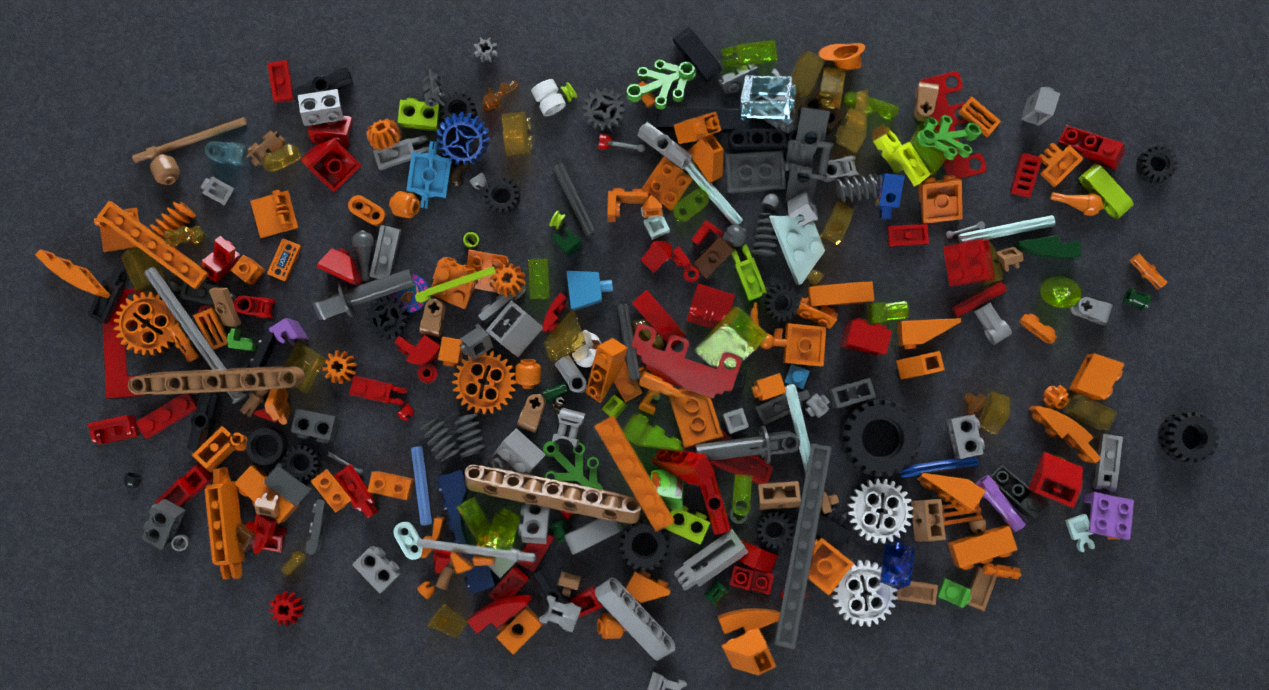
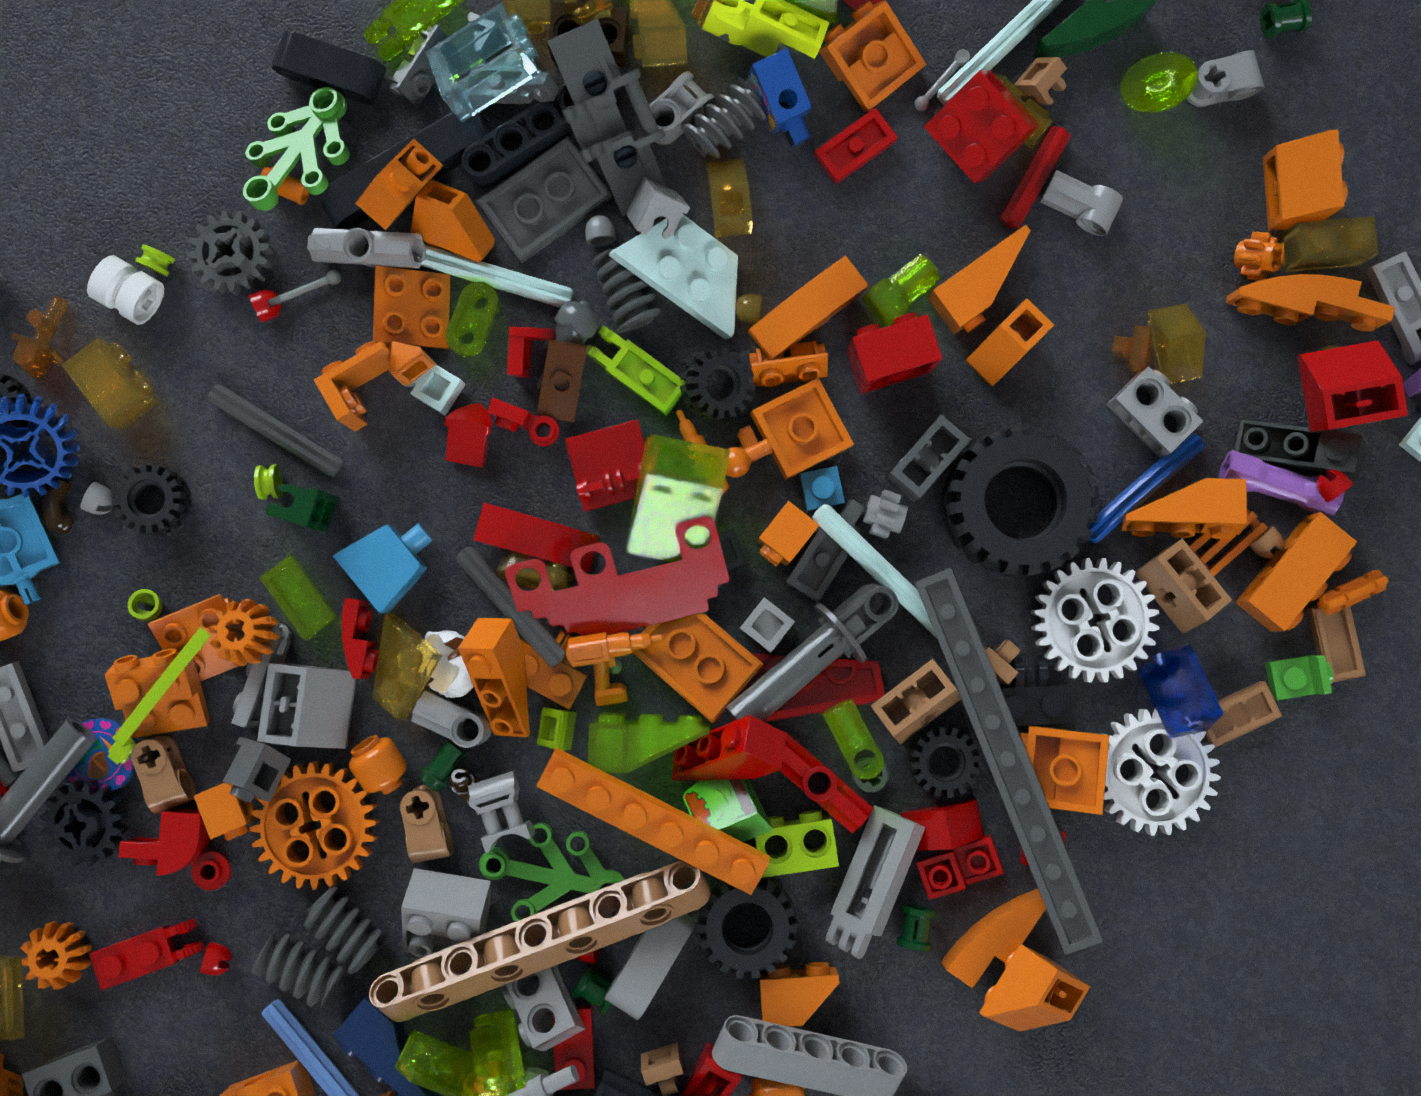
camera: 30 degrees left, 0 degrees up
(1025, 519) = (1335, 486): none -> red hinge
(1043, 332) = (1151, 163): orange plate -> none

